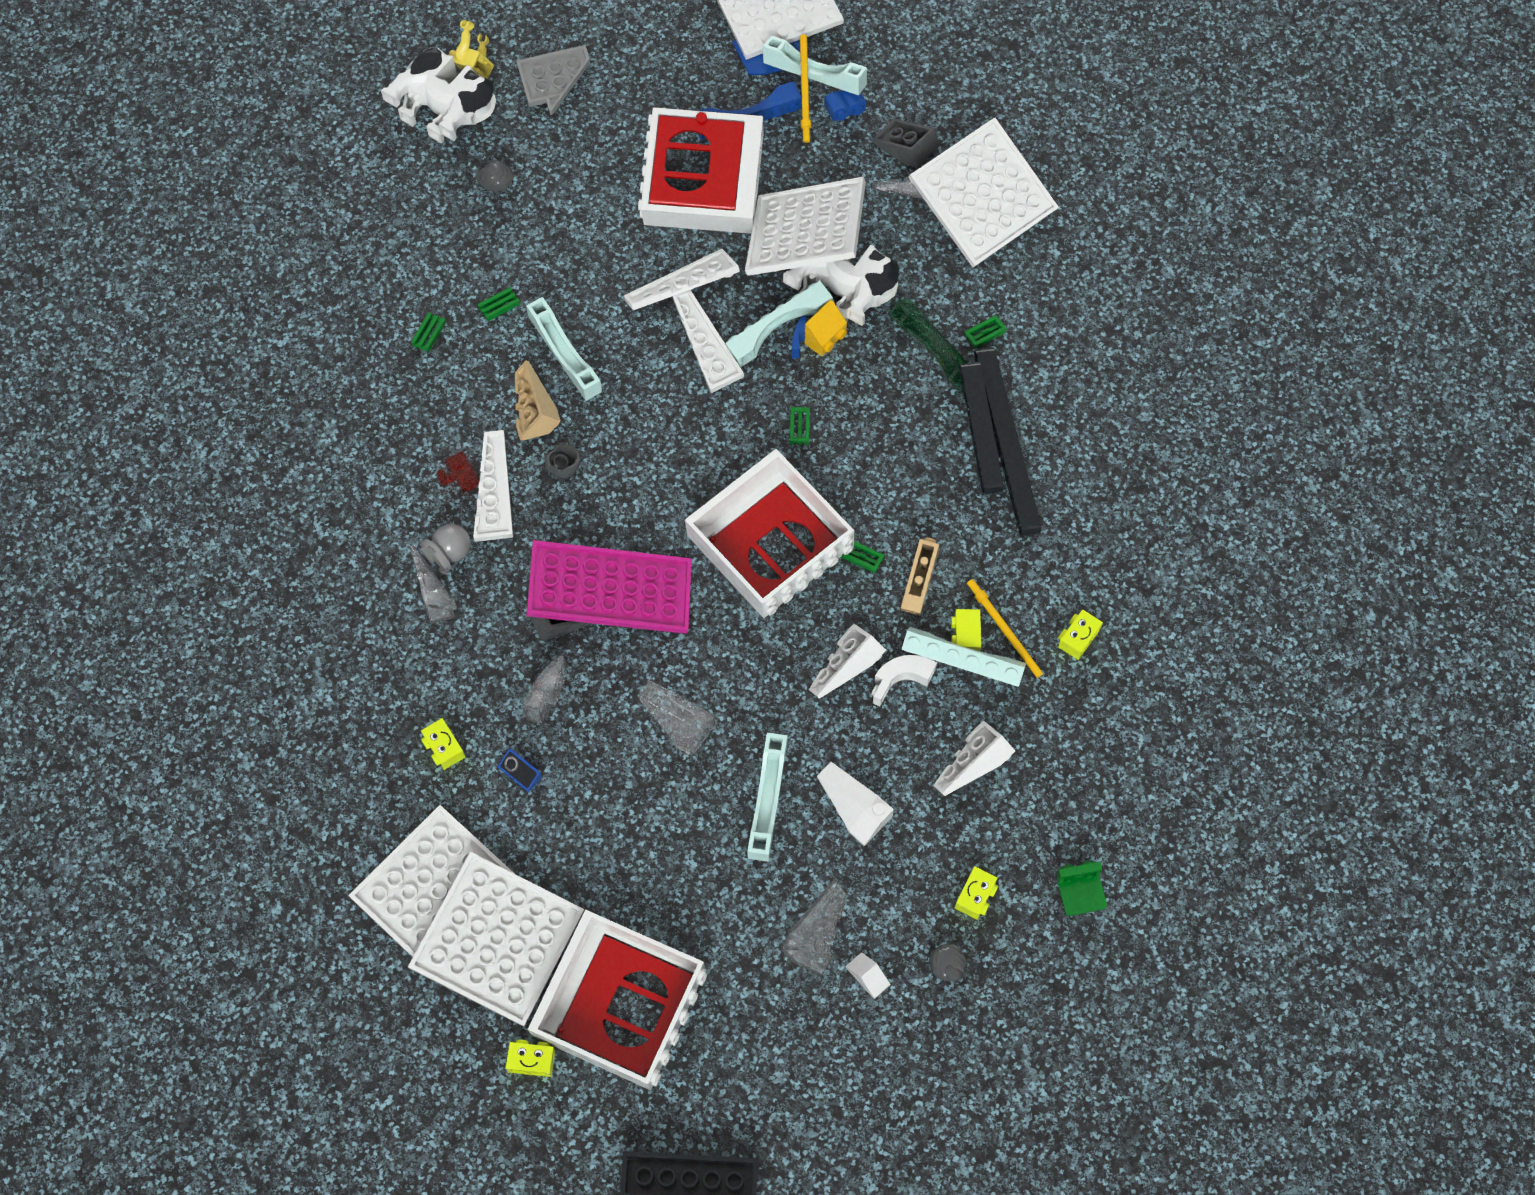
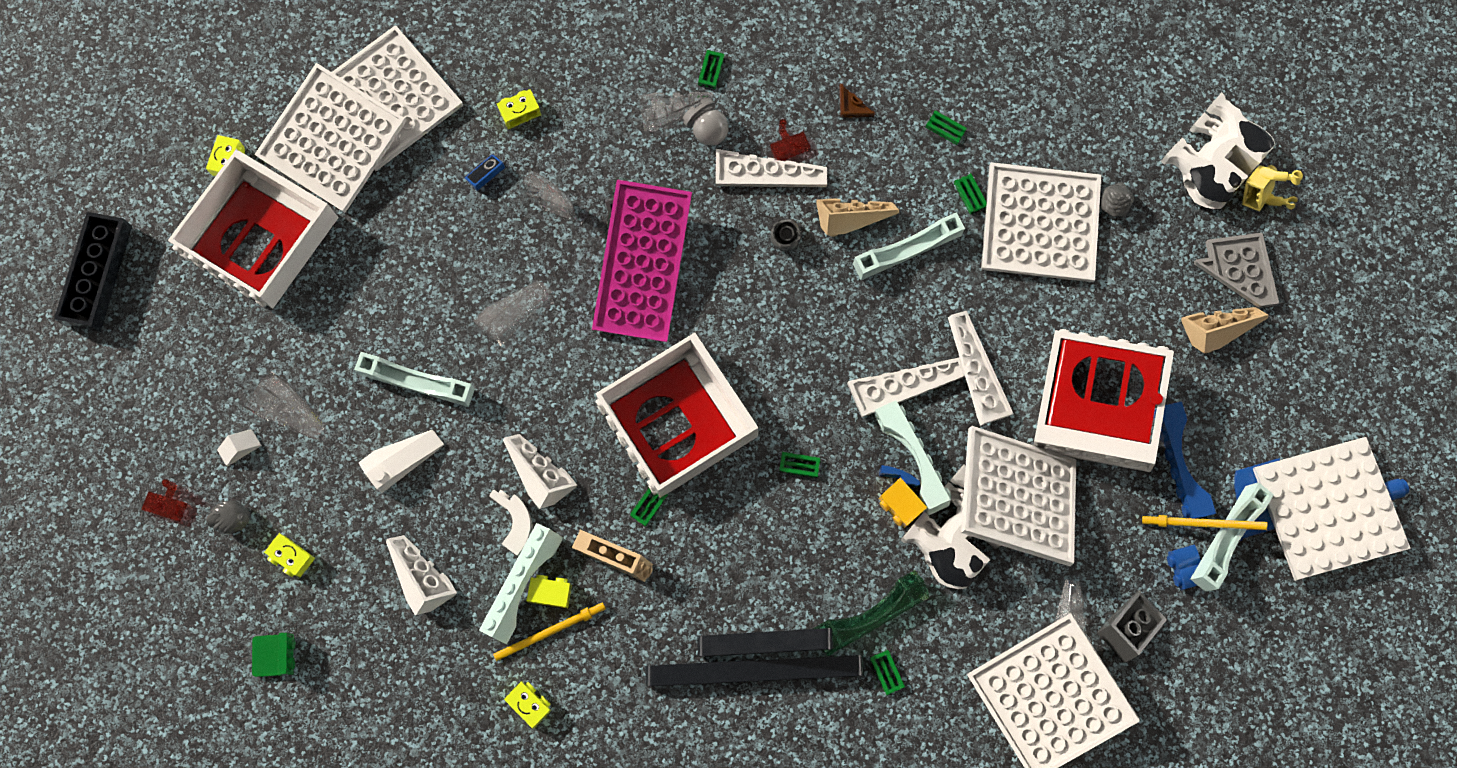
camera: 95 degrees right, 10 degrees up
(378, 565) = (707, 83): none -> green tile
(409, 421) = (851, 105): none -> reddish brown tile
(523, 240) = (1041, 222): none -> white plate
(616, 92) = (1217, 330): none -> tan wedge
(944, 1041) = (165, 505): none -> clear red plate

